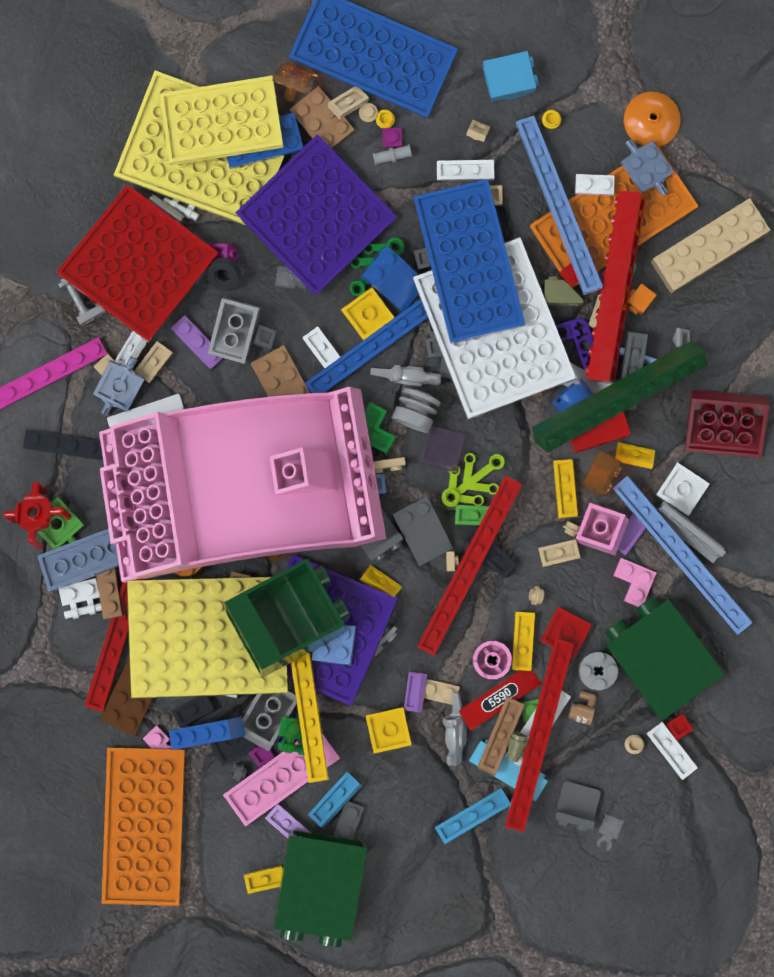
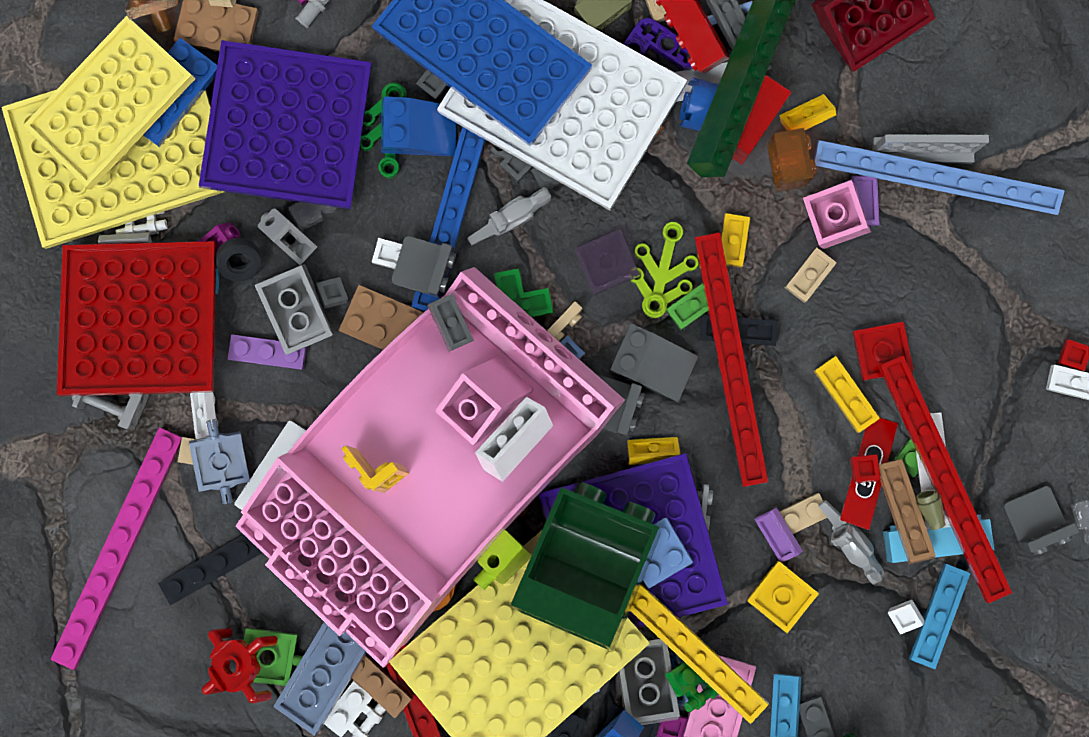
camera: 35 degrees left, 0 degrees up
(153, 362) = (236, 408): tan plate -> none
(205, 470) = (382, 478): none -> yellow bracket
(239, 574) = (505, 552): none -> lime torso
(261, 274) = (279, 228): none -> light grey torso
(302, 509) = (514, 439): none -> white brick
(319, 411) = (450, 322): none -> dark grey plate
(330, 365) = (423, 266): none -> dark grey bracket
(367, 313) = (419, 185): yellow plate -> none
(416, 410) = (547, 238): light grey wheel -> none
(451, 561) = (708, 371): tan plate -> none
(452, 800) = (906, 616): none -> white plate
(489, 670) = (846, 439): bright pink brick -> none
(497, 693) = (865, 469): none -> red plate
(530, 495) = (734, 238): none -> yellow plate
(536, 595) = (822, 337): tan plate -> none
(565, 488) = (764, 204): yellow plate -> none
(571, 529) = (803, 240): tan plate -> none
(583, 713) = (967, 419): medium nougat piece -> none
(602, 681) = (962, 364): light grey brick -> none
(634, 744) = (1043, 410): tan plate -> none
(640, 580) = (913, 237): bright pink plate -> none
(661, 657) = (1005, 298): dark green brick -> none
(682, 489) = (883, 111): white plate -> none

